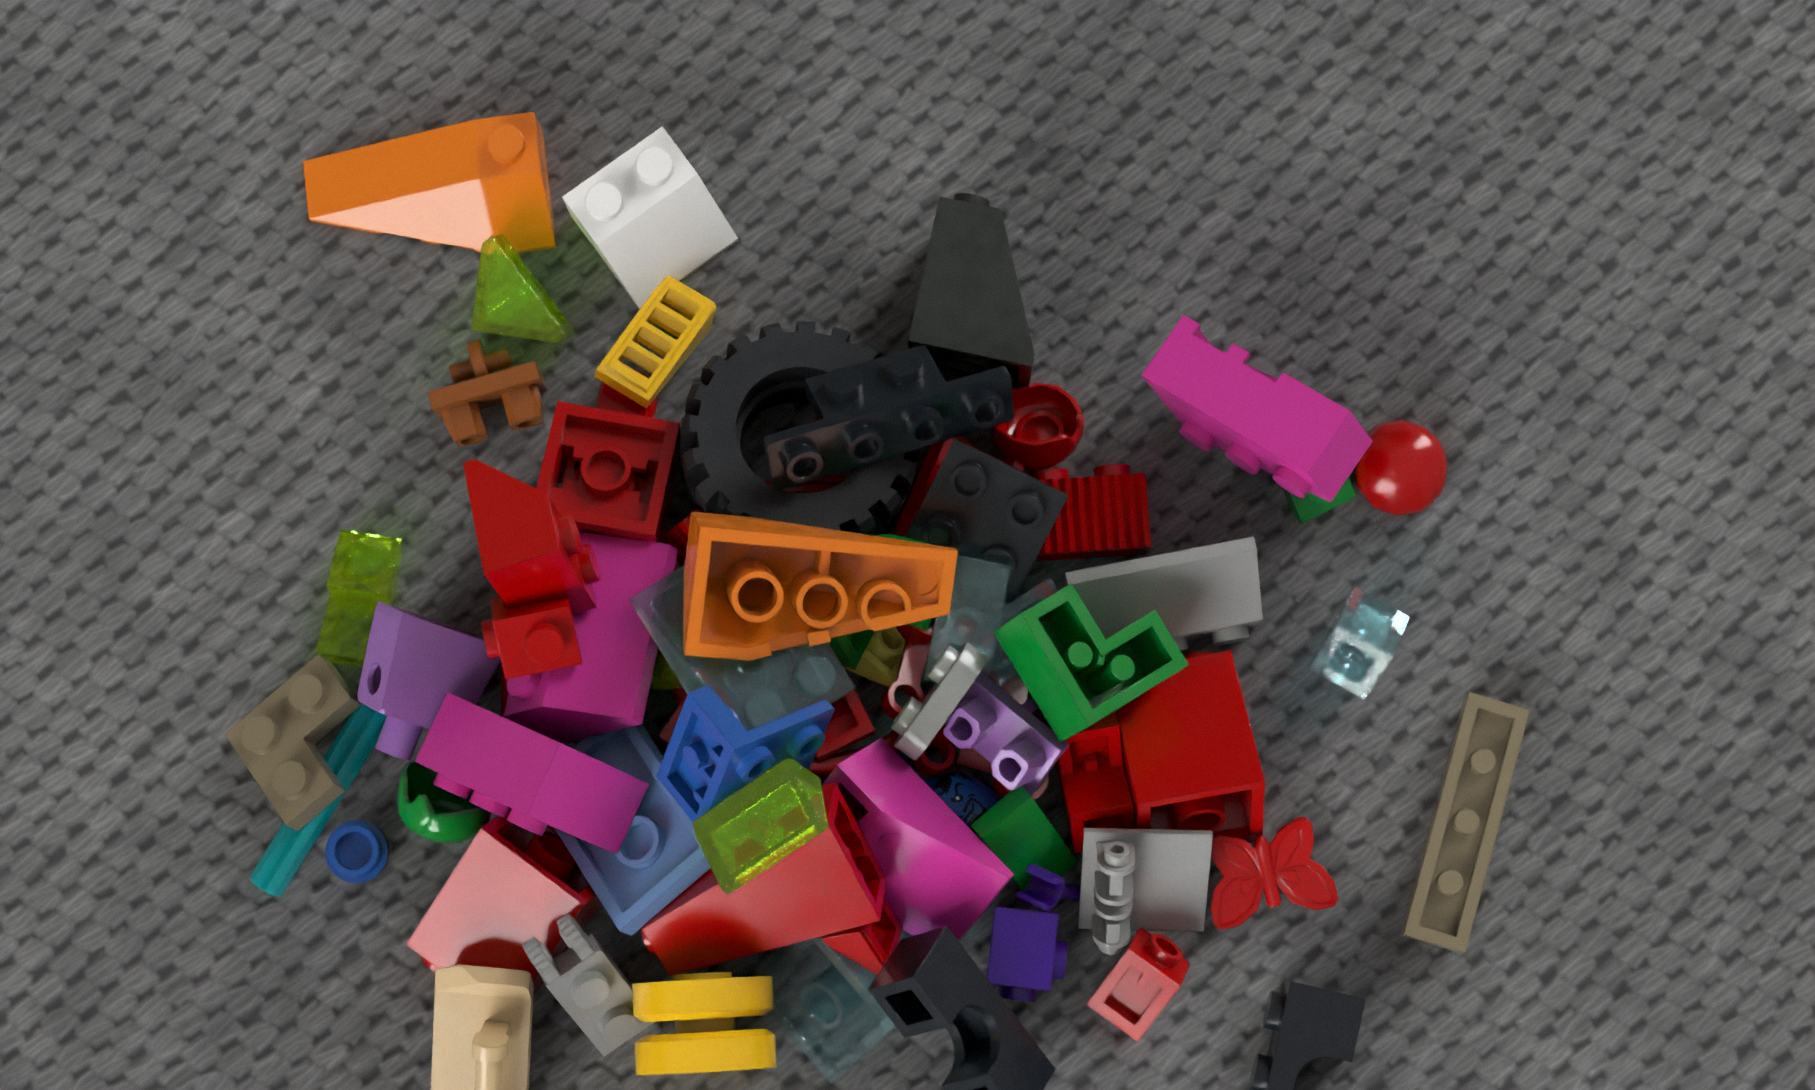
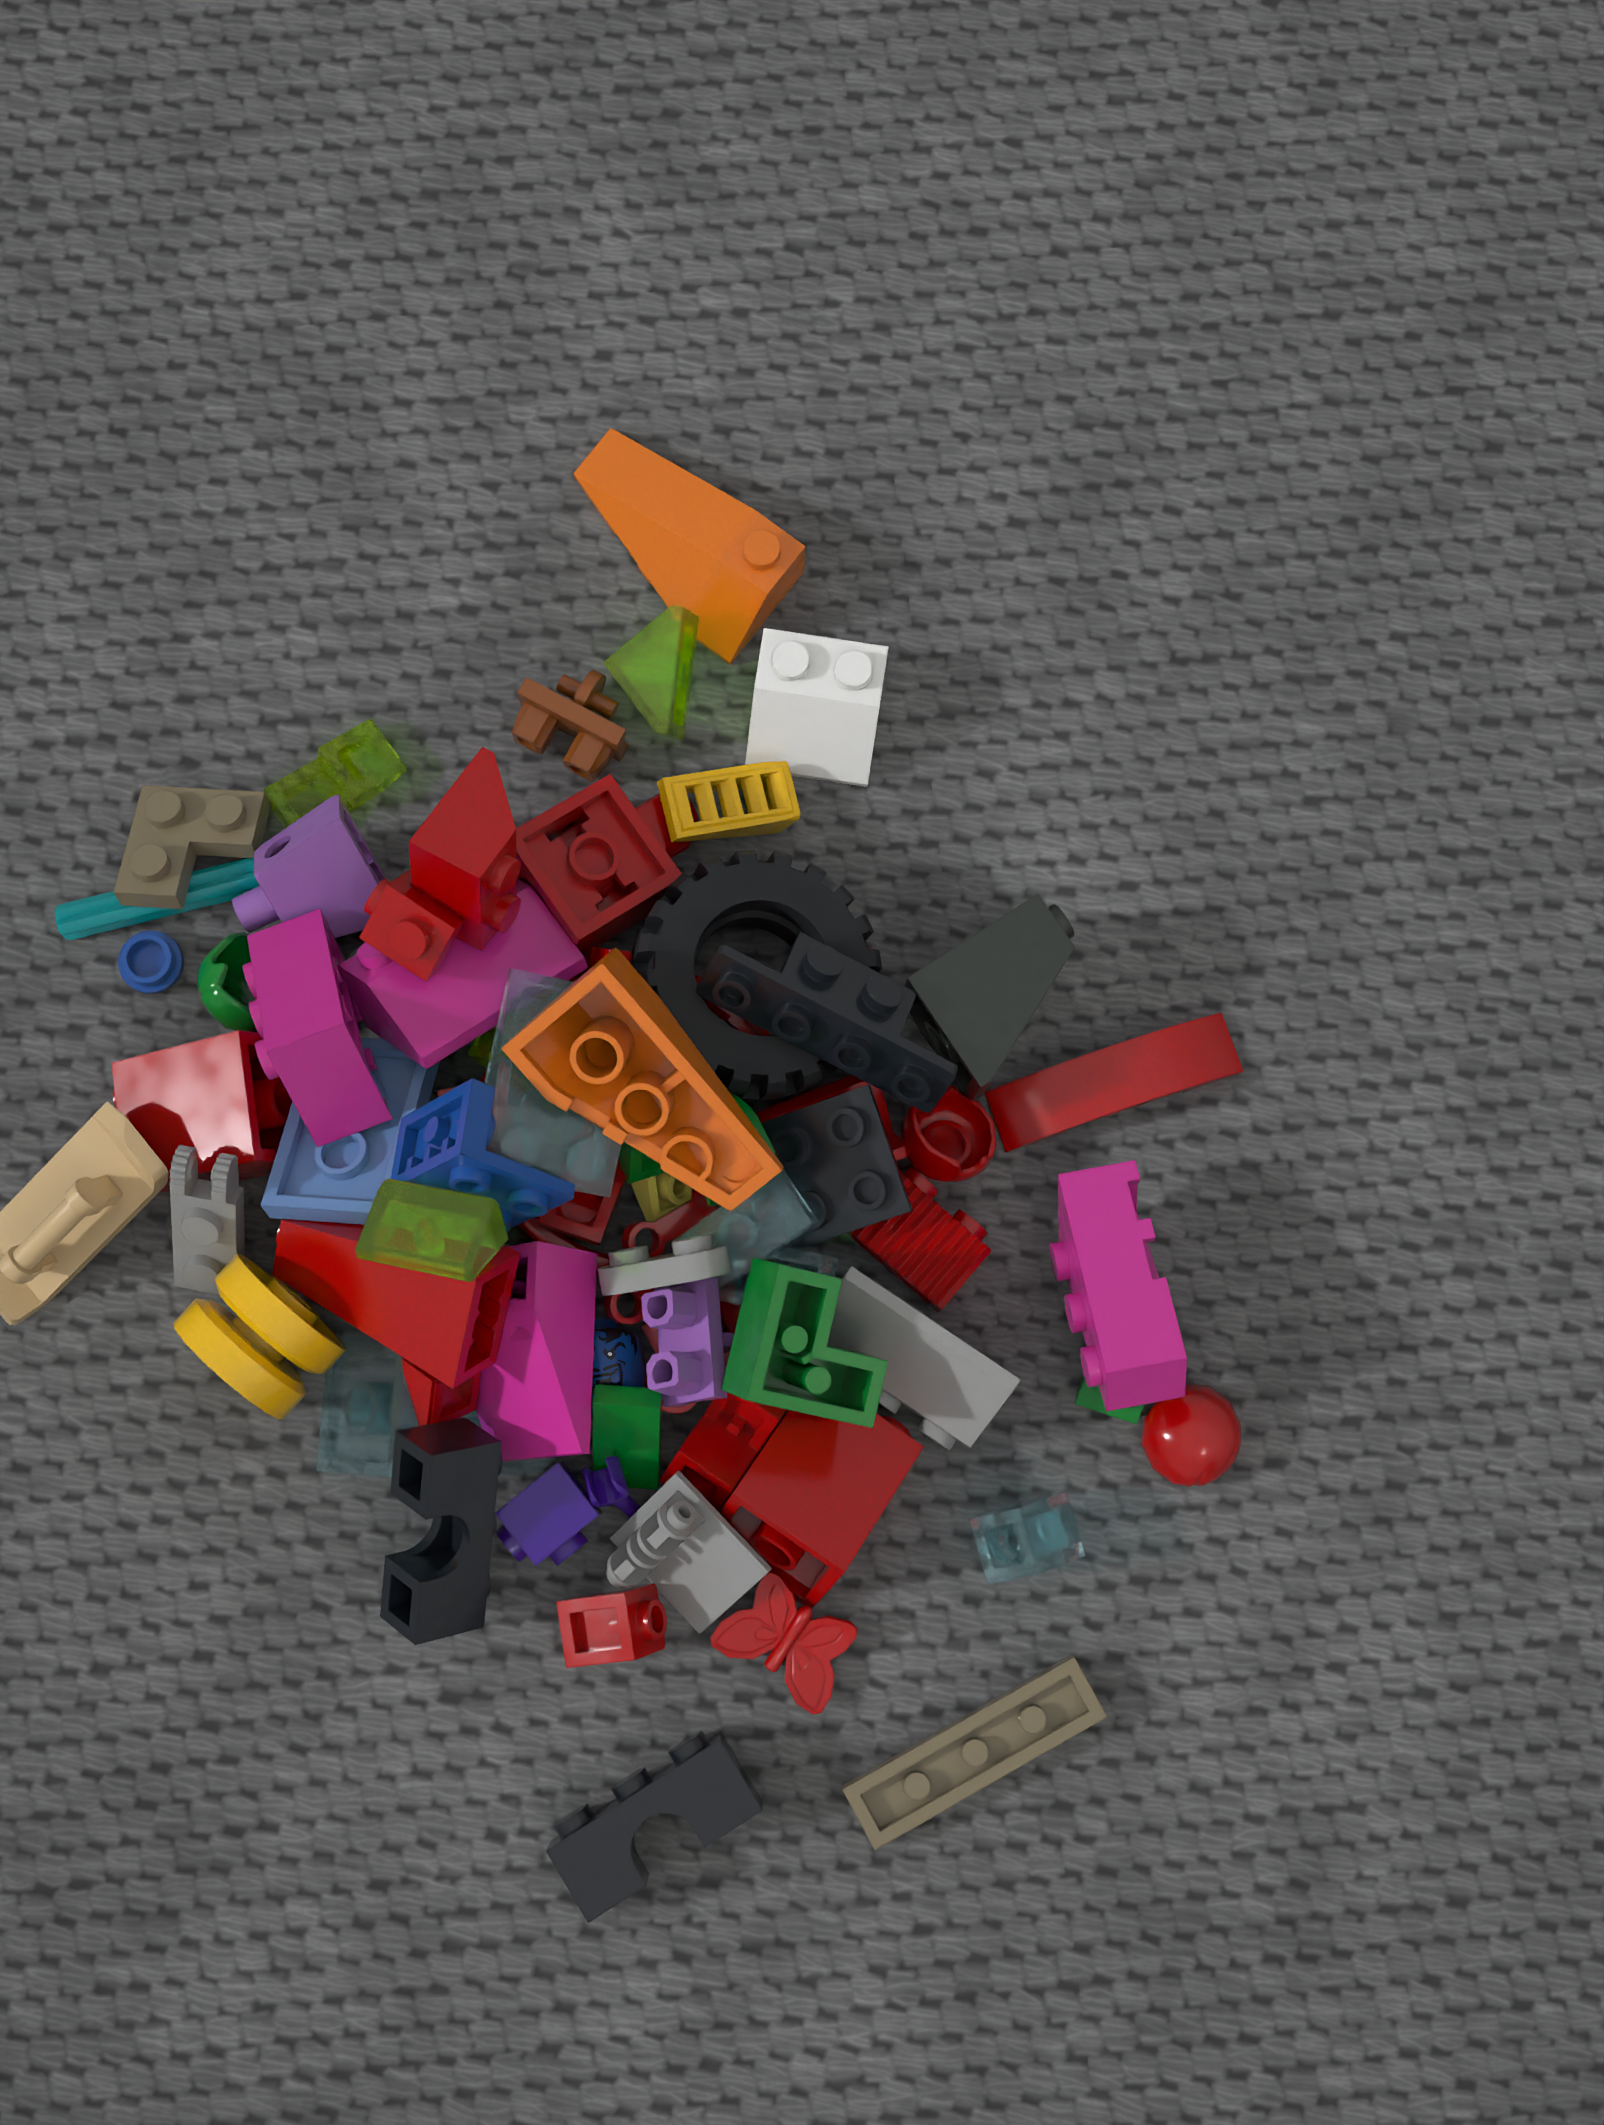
camera: 35 degrees right, 0 degrees up
(1110, 279) = (1113, 1080): none -> red slope

